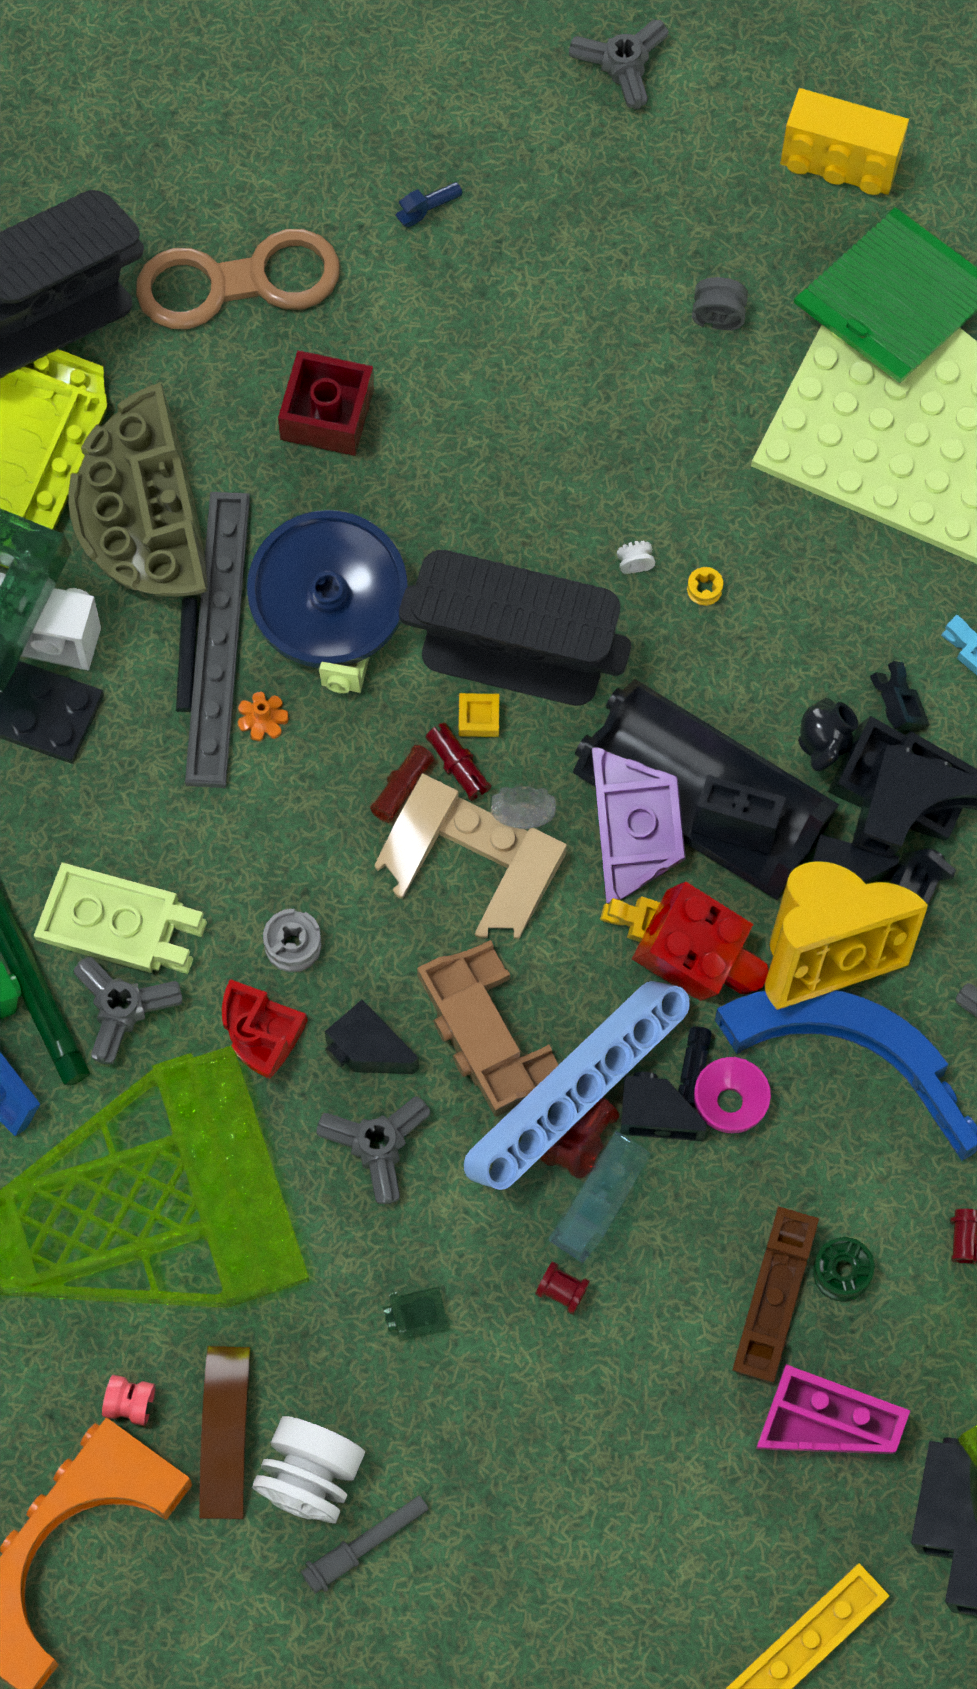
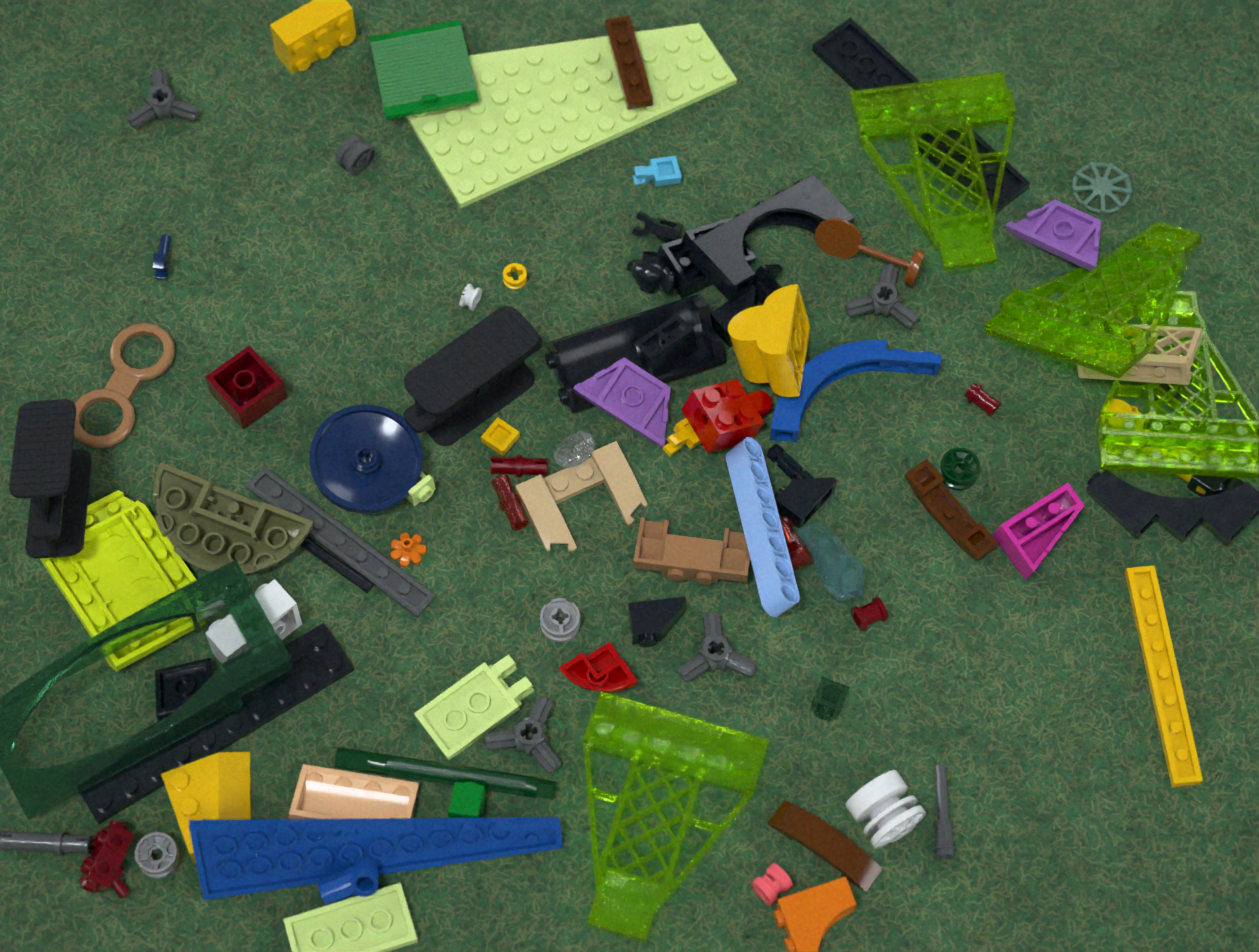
camera: 55 degrees left, 5 degrees down
(734, 1075) = (824, 445): dark pink piece -> none

